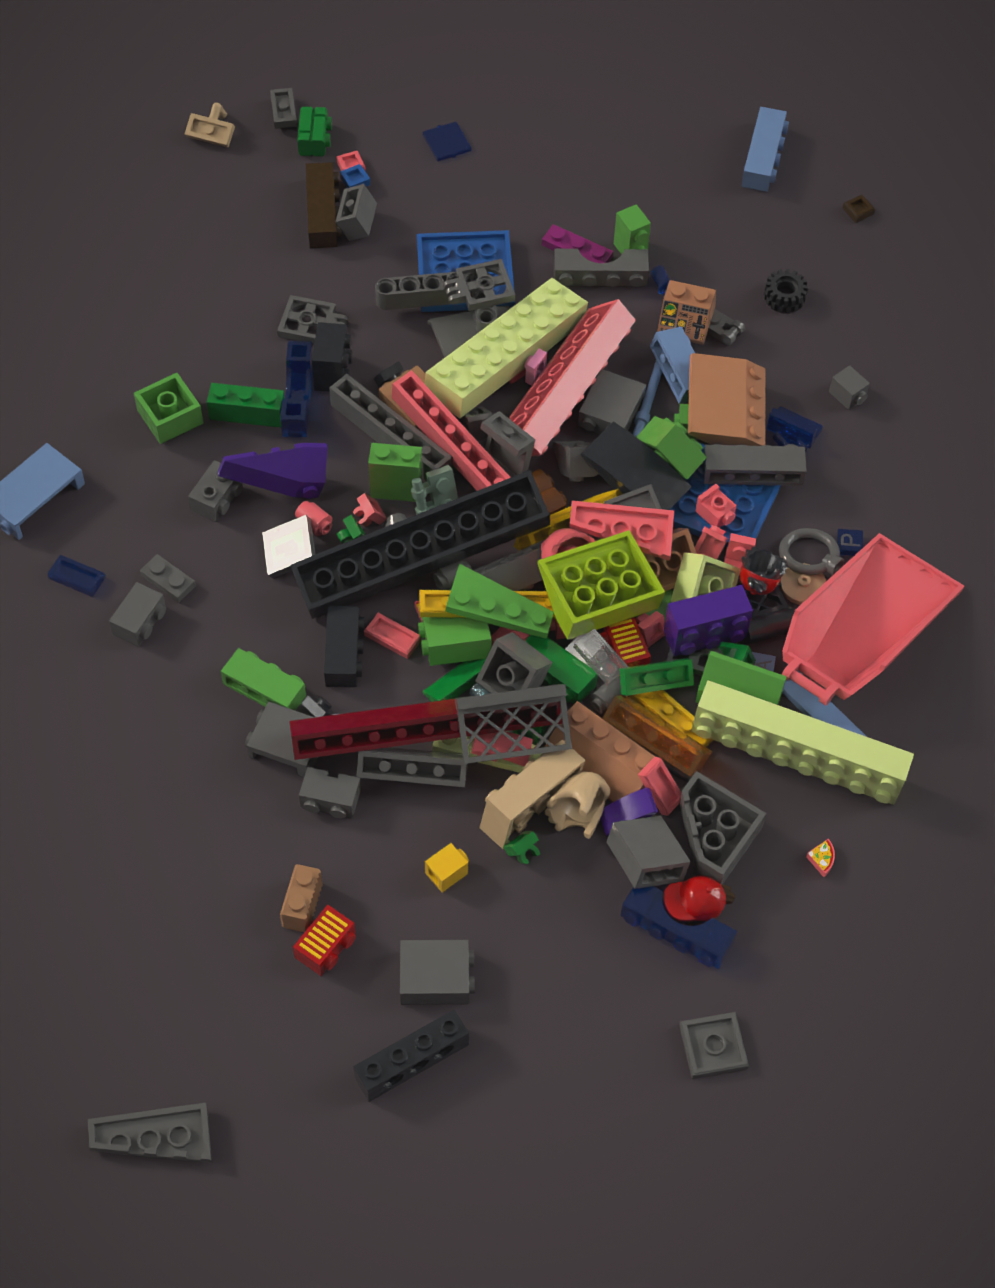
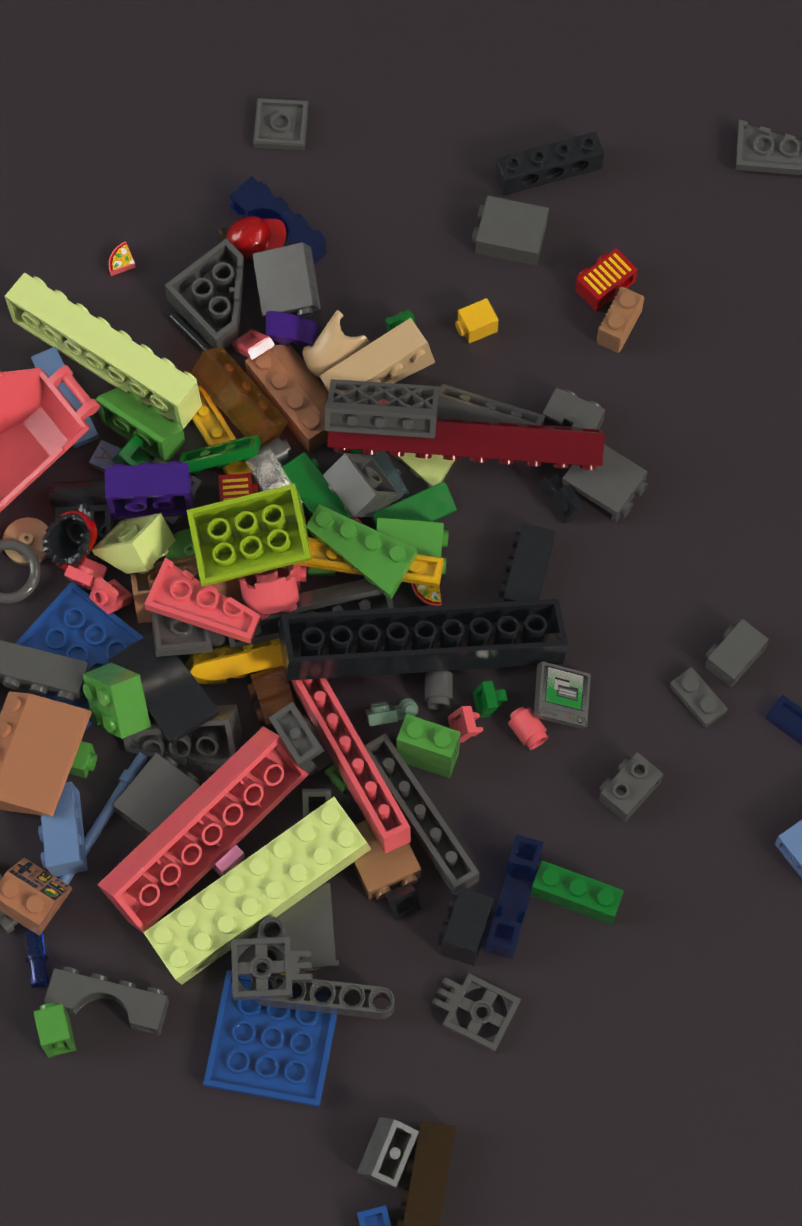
camera: 165 degrees left, 10 degrees up
(168, 408) = (668, 903): bright green brick -> none
(262, 681) = (617, 546): bright green brick -> none
(288, 472) = (539, 777): dark purple wedge -> none
(392, 635) = (473, 577): coral tile -> none
(562, 239) = (124, 1048): magenta plate -> none
(716, 507) = (94, 634): coral brick -> none

